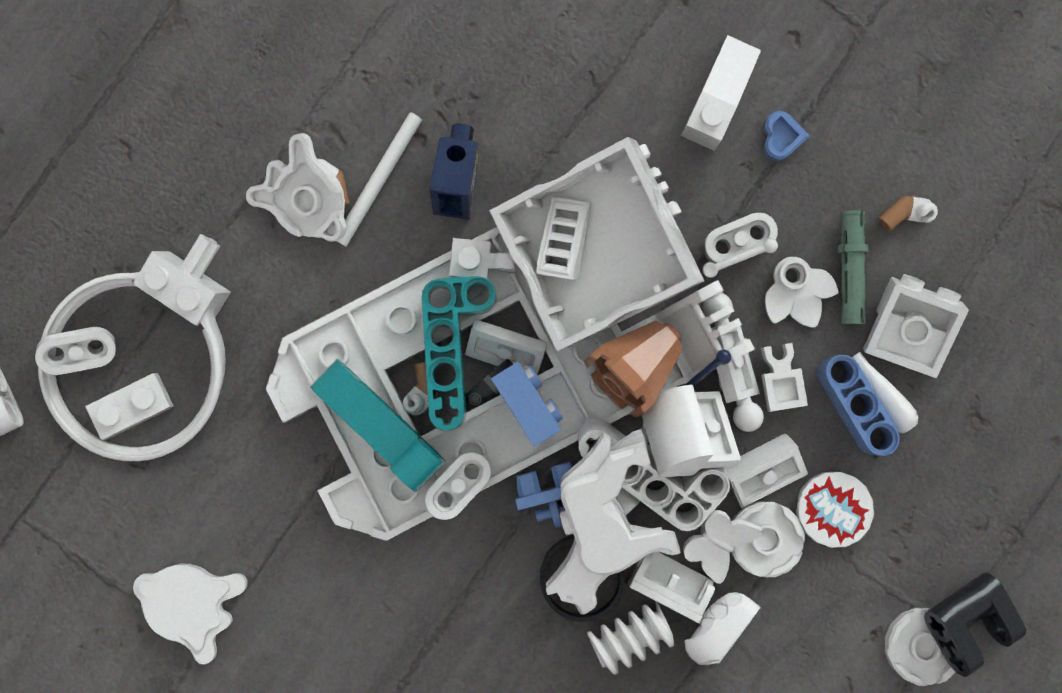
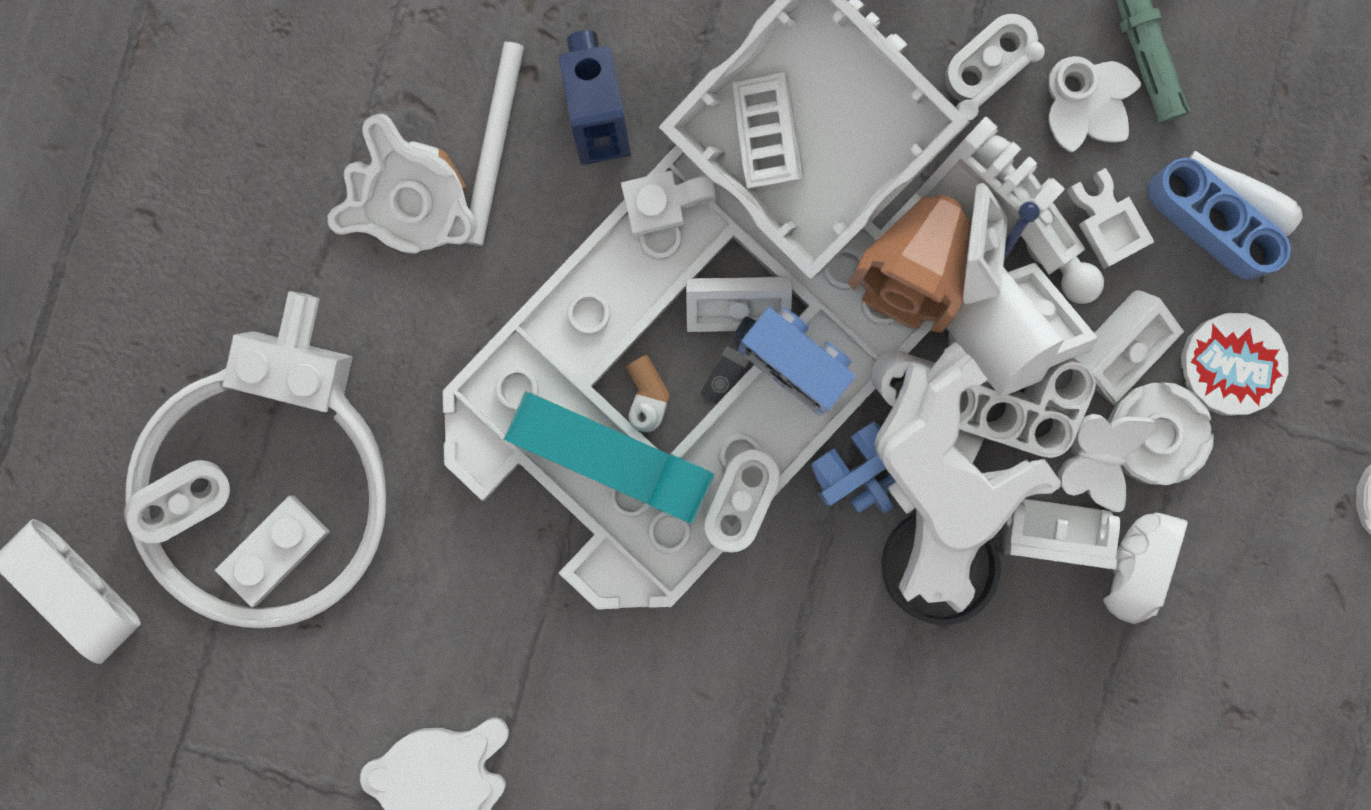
camera: 20 degrees left, 0 degrees up
(452, 353) = (673, 333): teal beam -> none
(631, 638) = (1034, 620): white piece -> none
(684, 370) = (985, 248): none -> white slope
(916, 325) = (1256, 90): white plate -> none

